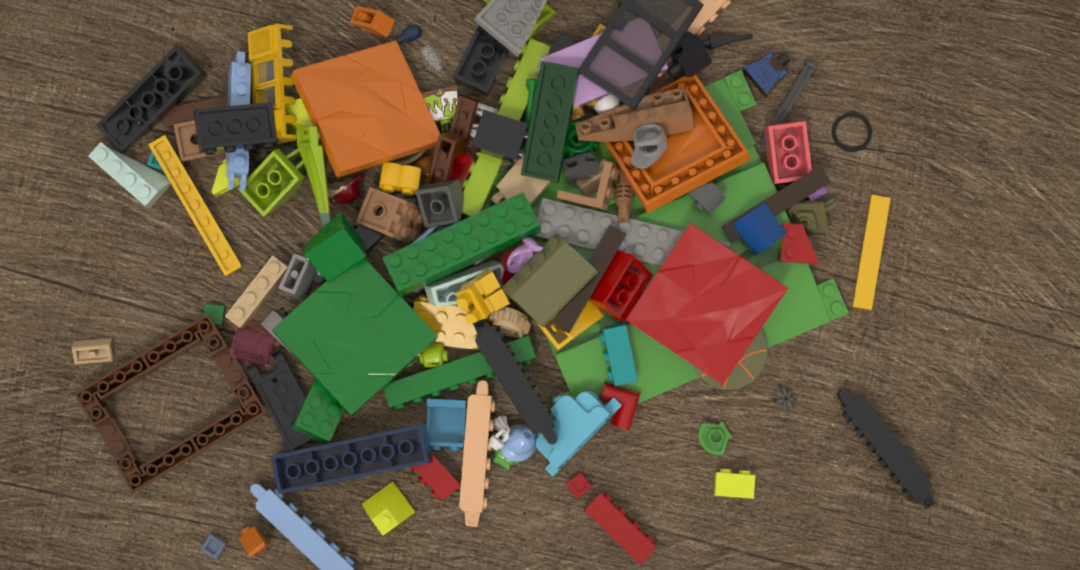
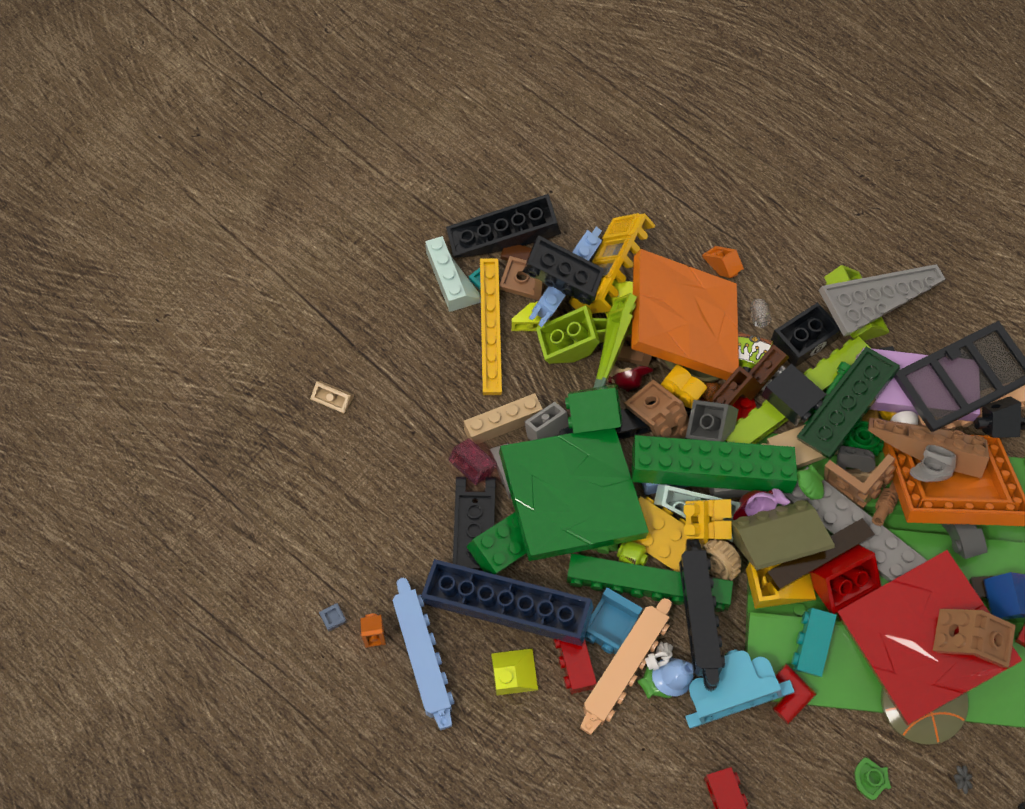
camera: 30 degrees right, 20 degrees down
(94, 395) = (371, 427): reddish brown slope -> none
(216, 313) = (453, 420): green tile -> none
(410, 34) = (750, 286): dark blue cylinder -> none
(552, 216) = (811, 483): none -> bright green animal
(578, 485) = (711, 751): red tile -> none
(743, 291) = (975, 635): none -> medium nougat bracket

